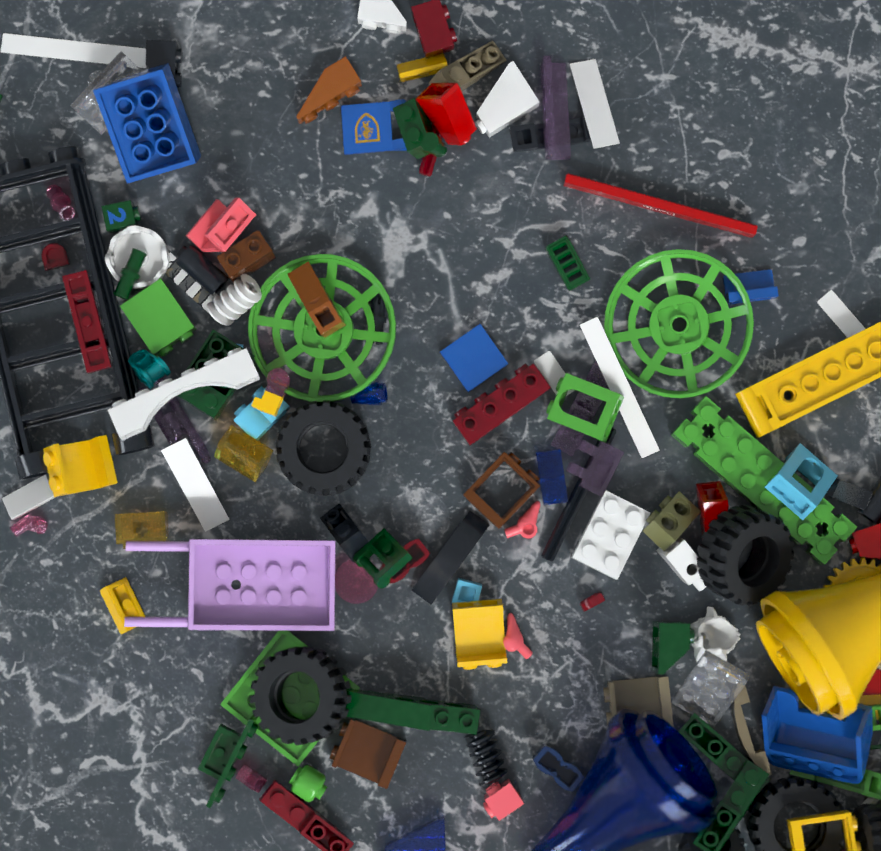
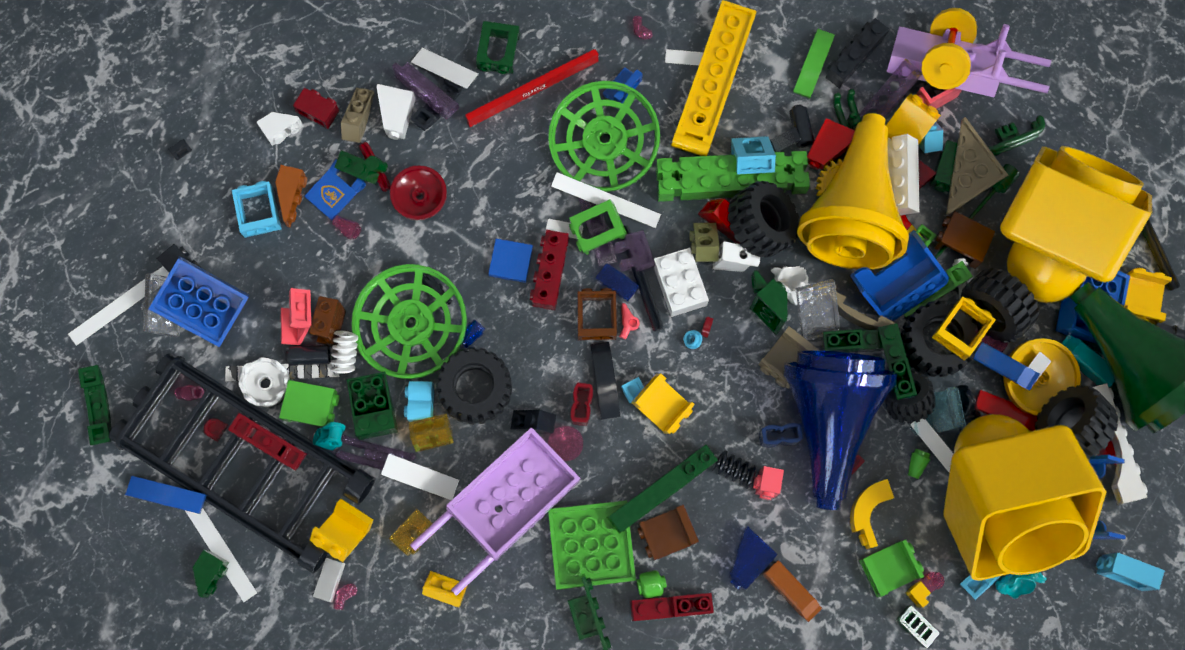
camera: 45 degrees left, 10 degrees down
(120, 216) = (232, 368): dark green brick -> none
(130, 274) = (268, 394): dark green pin -> none
(135, 415) = (379, 390): white arch -> none
(251, 778) = (615, 615): clear pink piece -> none
(270, 702) = (575, 549): black tyre -> none
(271, 99) = (261, 226): none -> medium azure window
(277, 386) = (417, 382): leg -> none
(316, 300) = (391, 306): dark orange slope -> none
(351, 177) = (347, 227): none -> clear pink cone
(388, 552) = (564, 406): dark green plate -> none
(421, 67) = (330, 136): yellow slope -> none
(448, 112) = (367, 140): red slope -> none
(452, 192) = (415, 182): none -> dark red dish
(514, 638) = (684, 389): coral animal -> none
(564, 241) = (510, 169): dark green slope -> none
(566, 594) = (688, 339): none -> medium azure plate
(658, 158) = (498, 30): none -> dark green panel
(682, 607) = (758, 282): none -> dark green slope
(823, 246) = (640, 30): none -> clear pink arm

